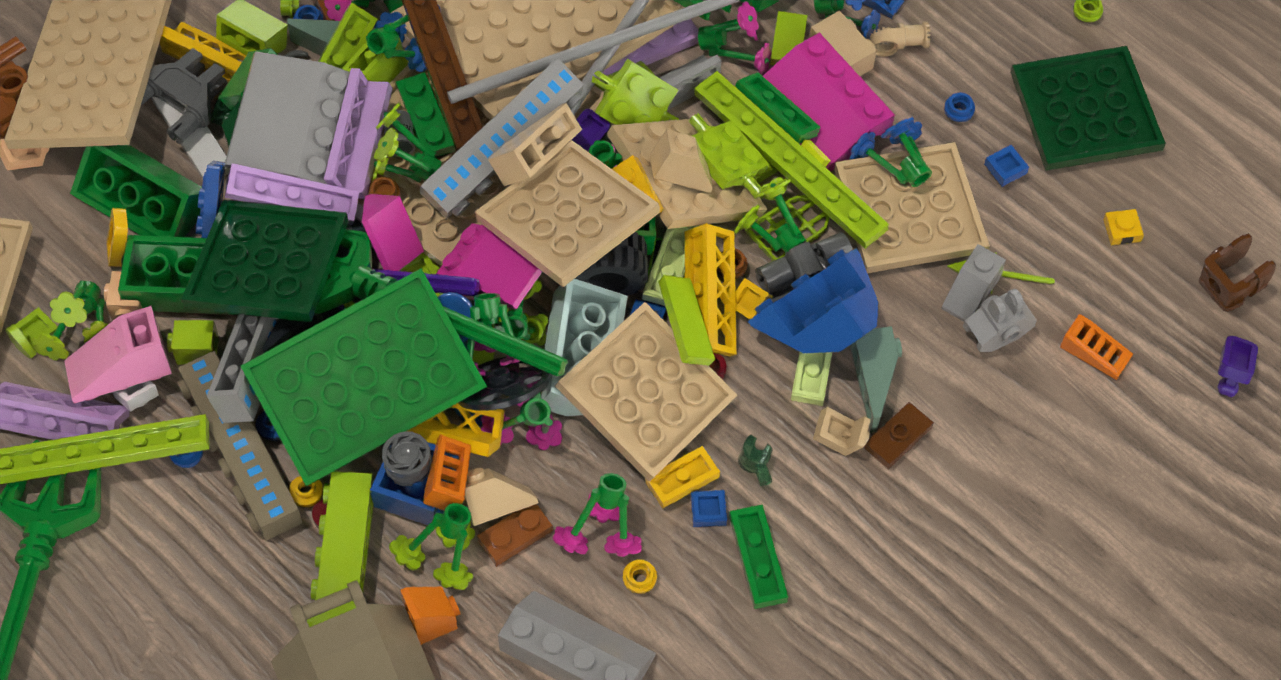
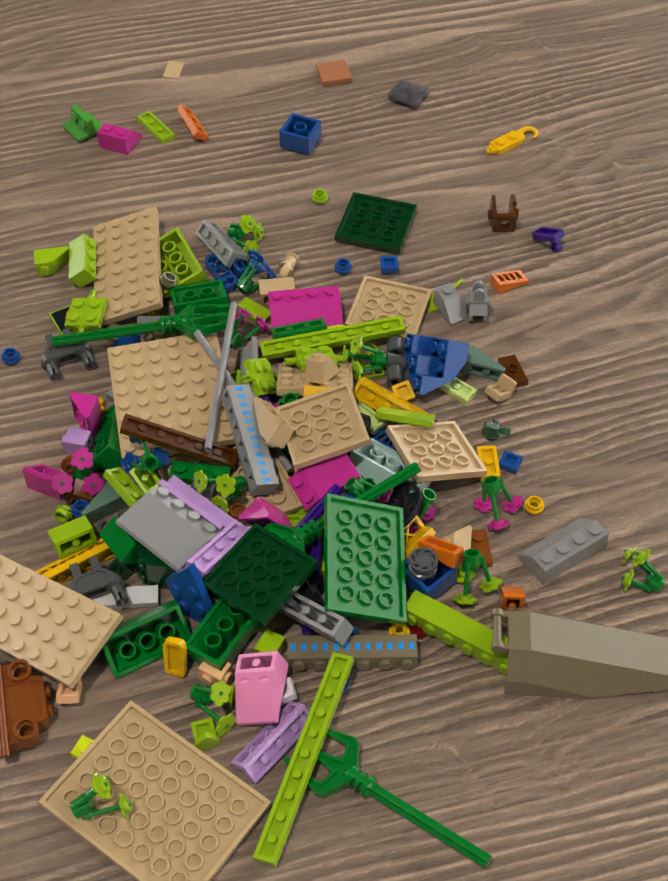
camera: 60 degrees left, 10 degrees down
(758, 556) = (550, 452): green plate -> none
(904, 132) = (372, 292): plant -> none
(1123, 227) = (449, 241): yellow plate -> none

